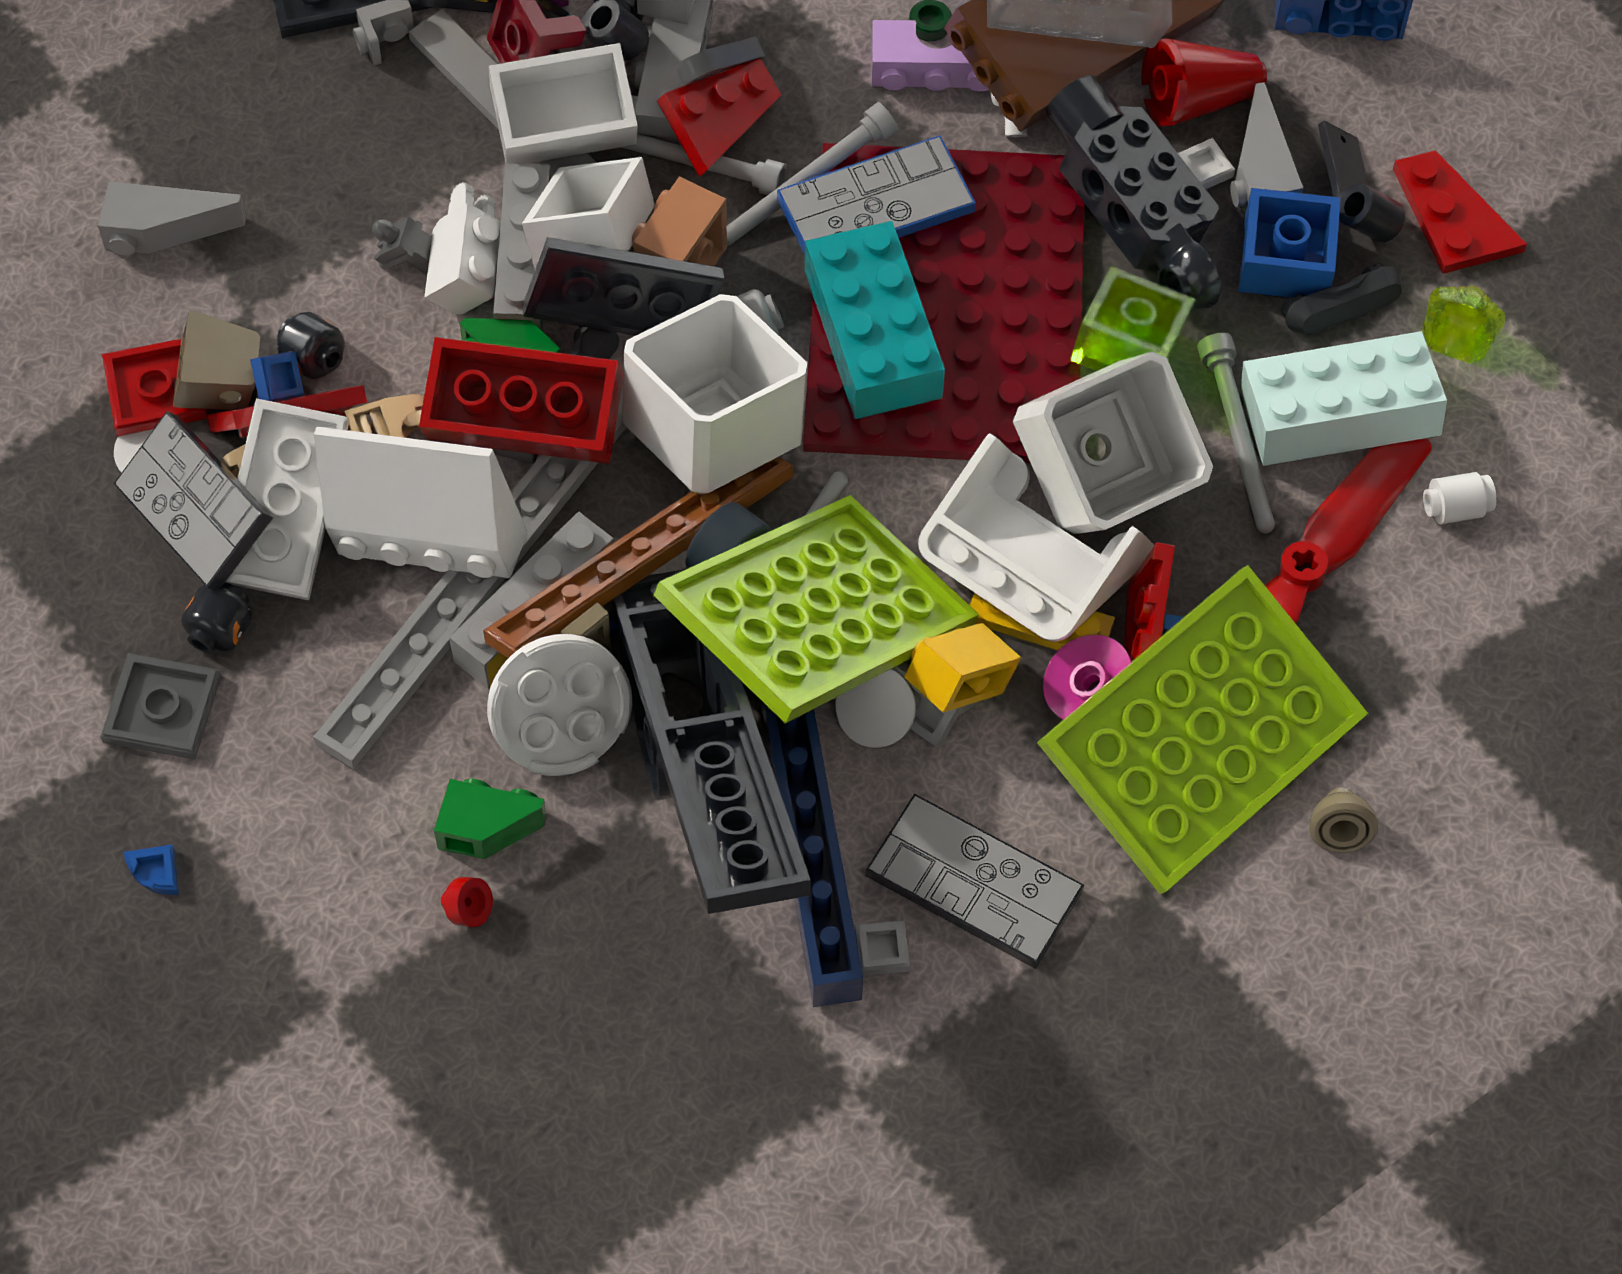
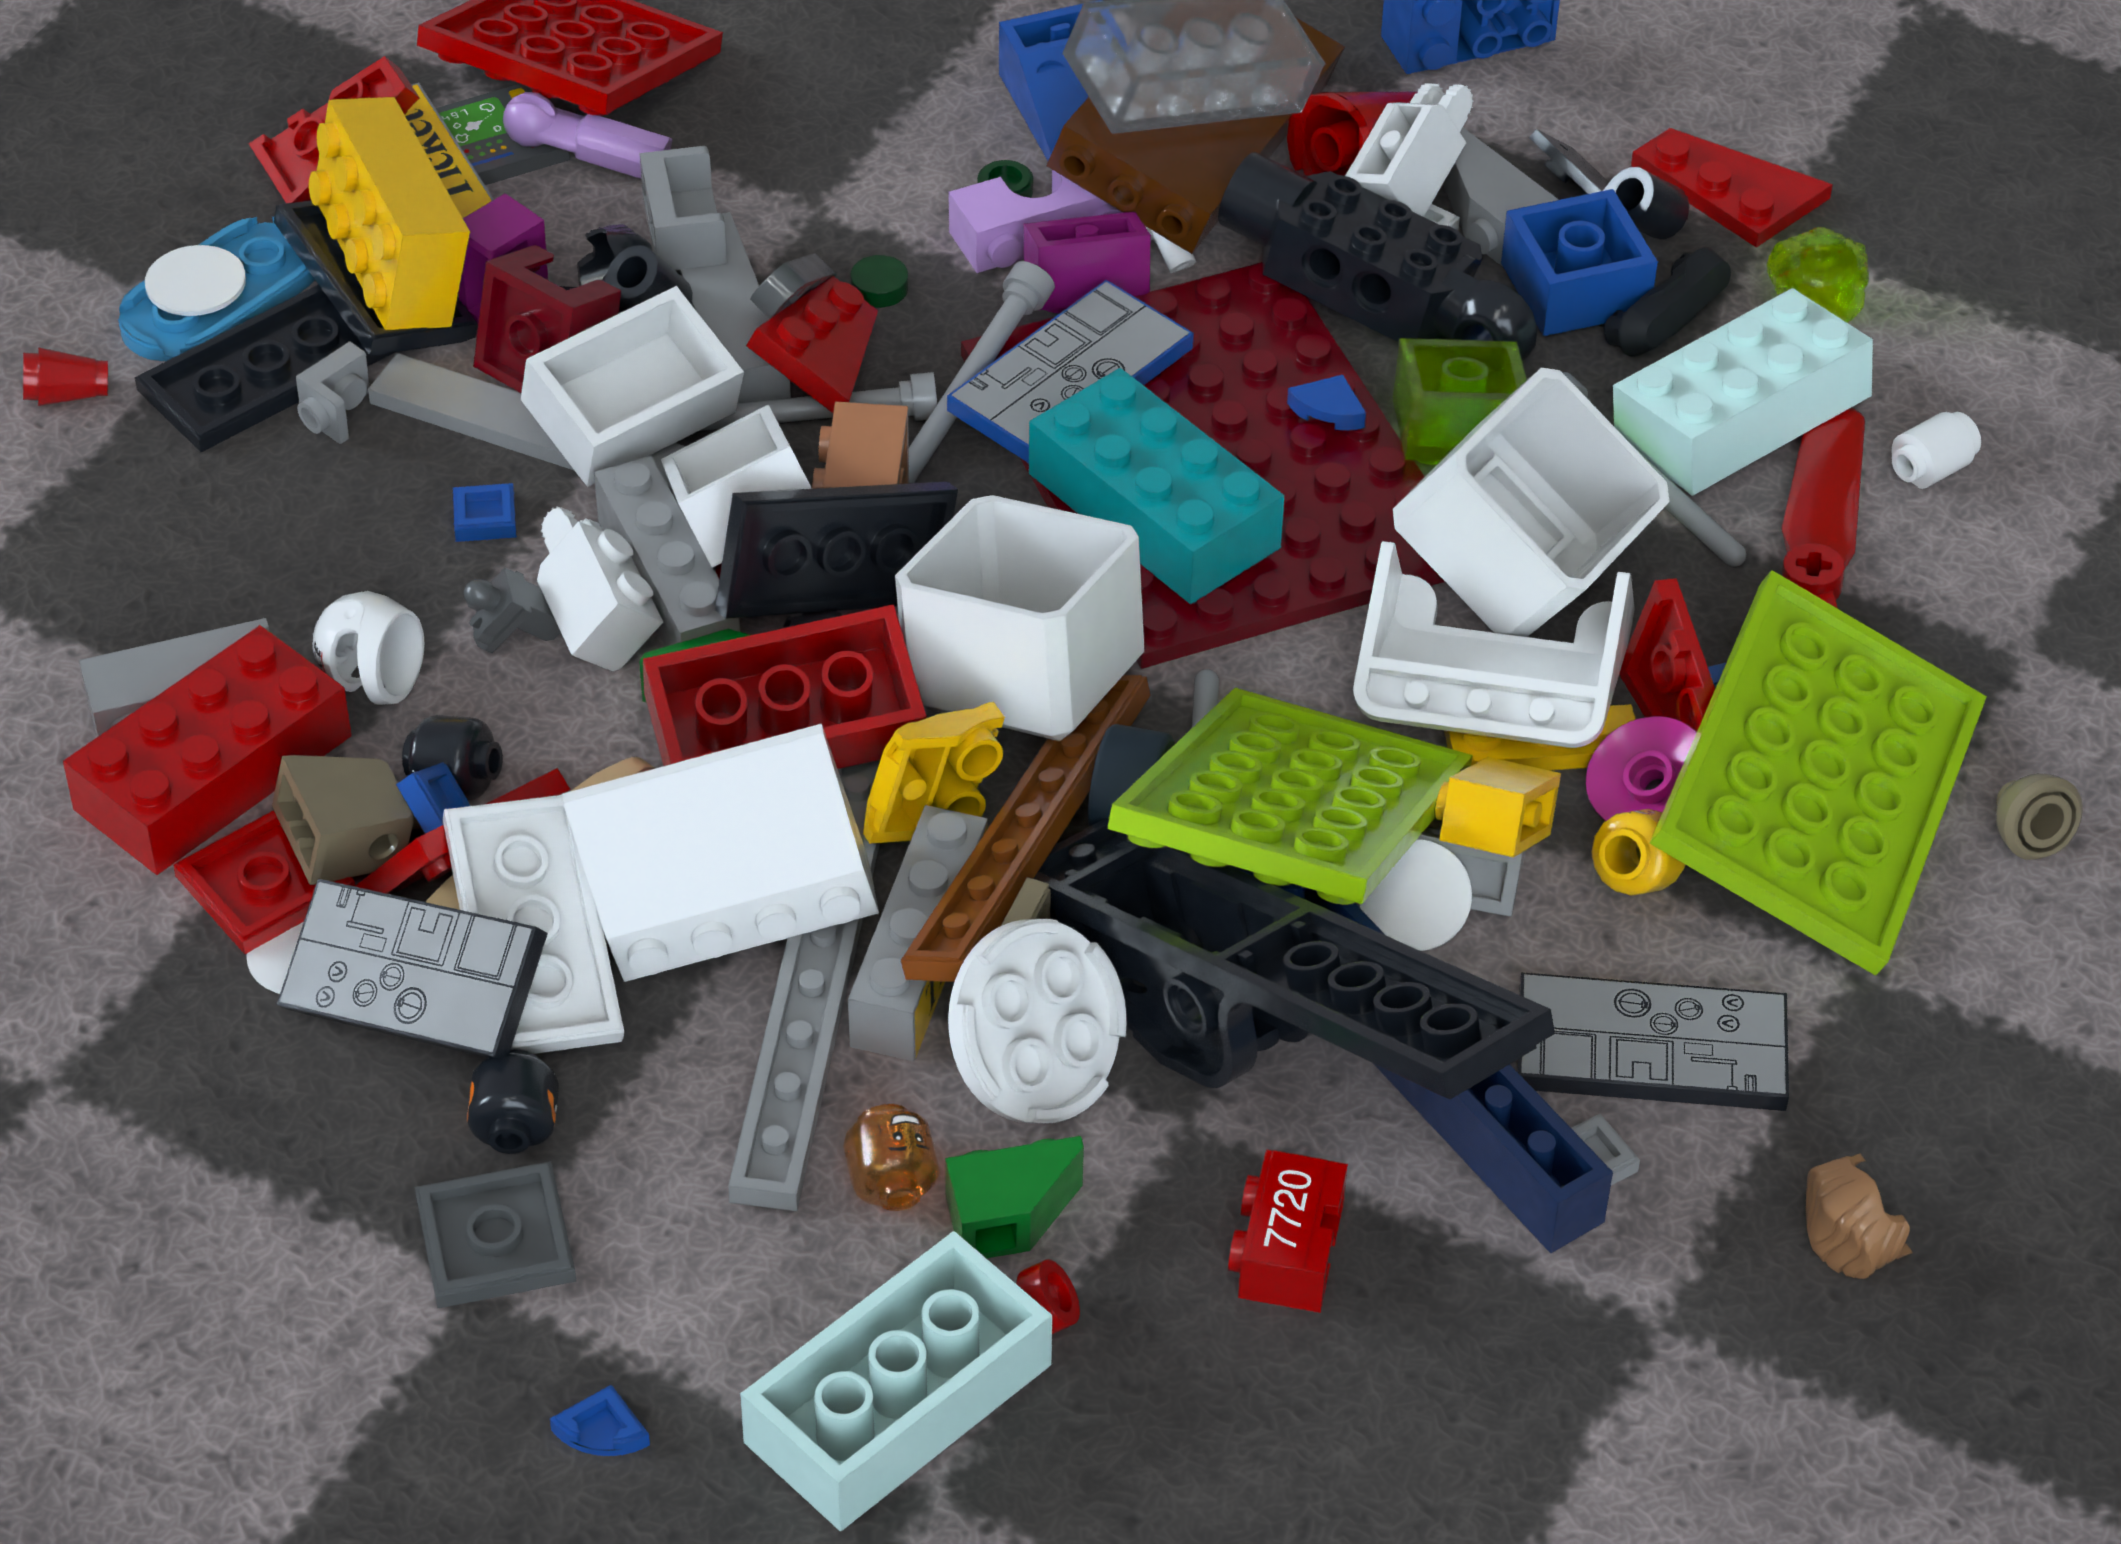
camera: 25 degrees left, 15 degrees down
(158, 274) = (206, 749): none -> red brick
(294, 224) = (377, 638): none -> white helmet
(337, 921) = (896, 1380): none -> light aqua brick
(424, 759) = (890, 1156): none -> clear orange head
(436, 157) = (484, 512): none -> blue tile
(598, 487) = (933, 765): none -> yellow slope
(654, 909) = (1290, 1230): none -> red brick
(797, 69) = (880, 280): none -> dark green tile
(941, 107) = (1087, 252): none -> magenta brick
(1020, 1073) = (1849, 1220): none -> medium nougat hair
(1027, 730) = (1627, 858): none -> yellow head
(1039, 295) = (1328, 401): none -> blue tile
(1213, 110) = (1414, 146): none -> white hinge

